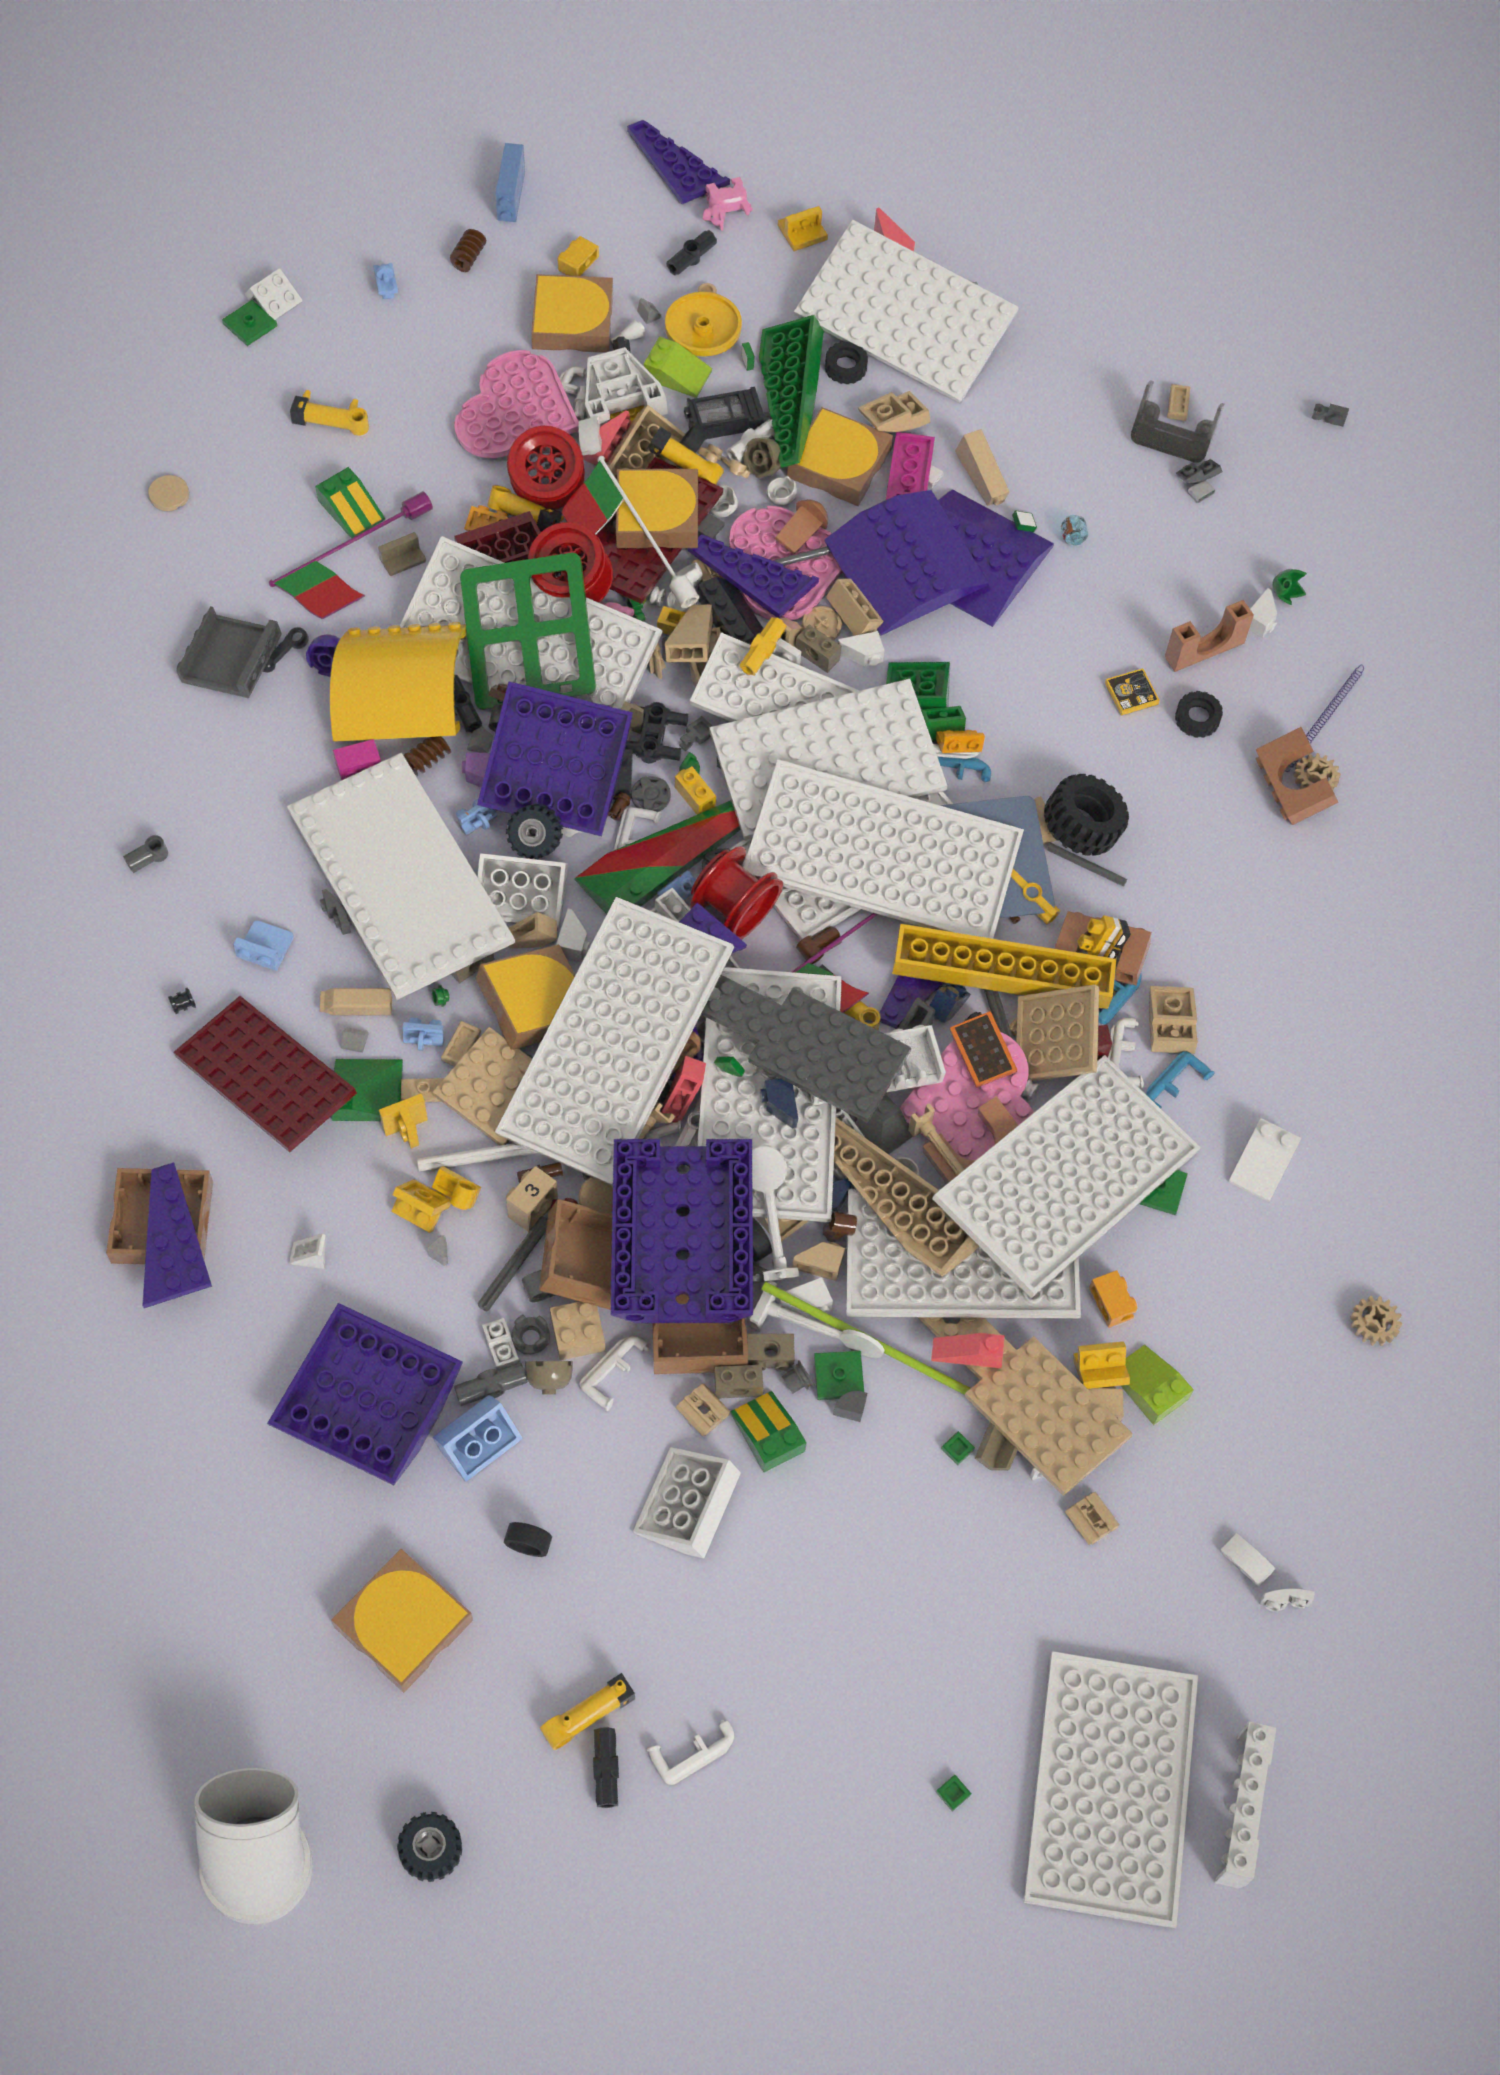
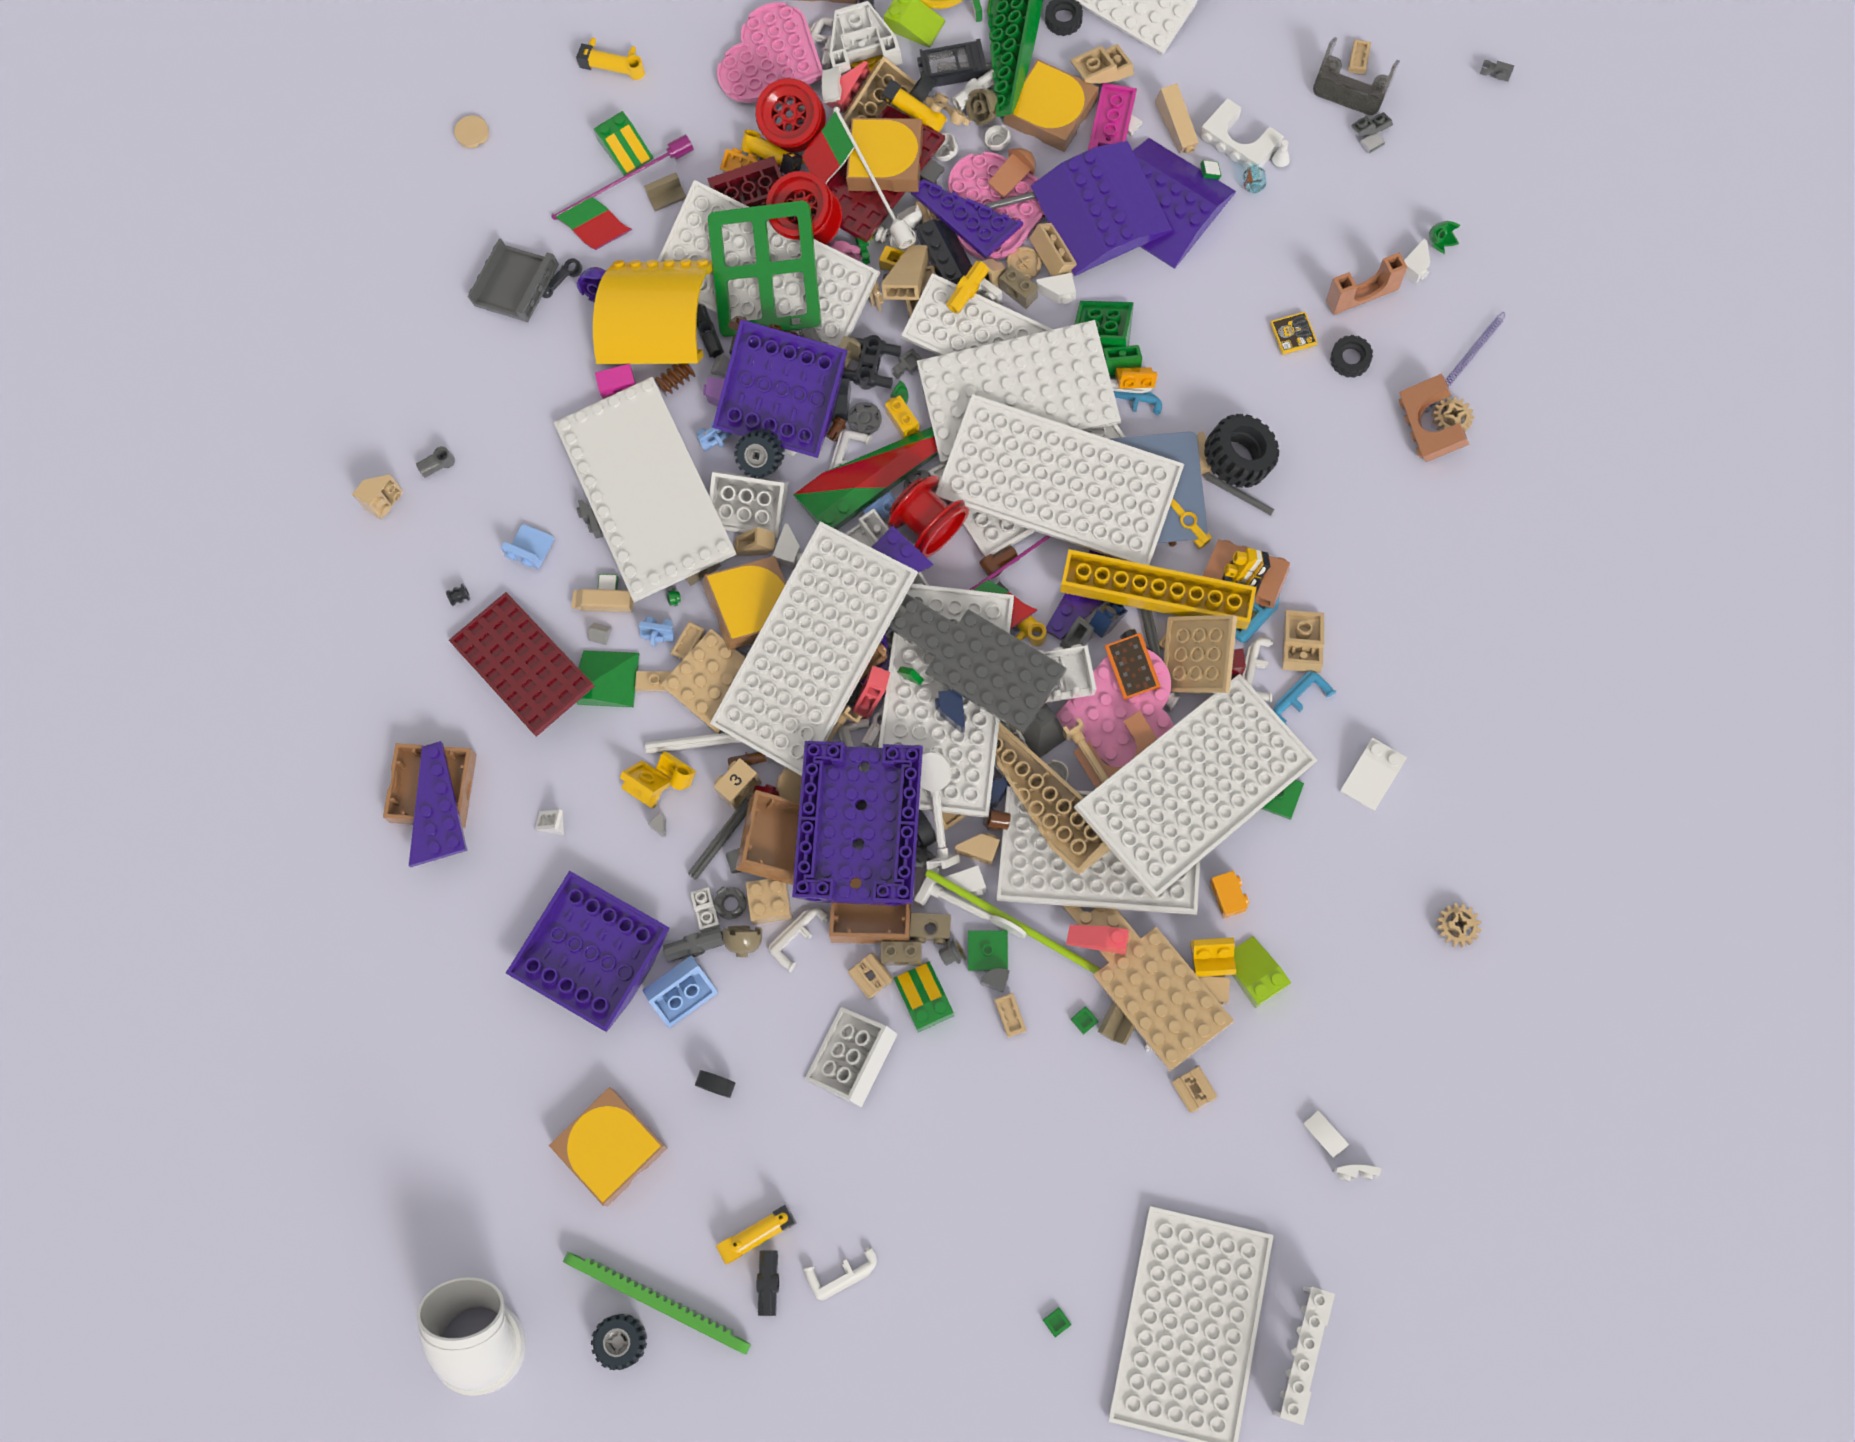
camera: 15 degrees right, 10 degrees up
(80, 891) = (378, 494): none -> tan slope
(360, 980) = (608, 581): none -> white tile
(404, 1118) = (633, 708): yellow bracket -> none
(472, 1798) = (657, 1302): none -> bright green gear
(871, 1445) = (1010, 1015): none -> tan plate
(1028, 483) = (1216, 133): none -> white arch
(1102, 506) = (1281, 157): none -> white cone

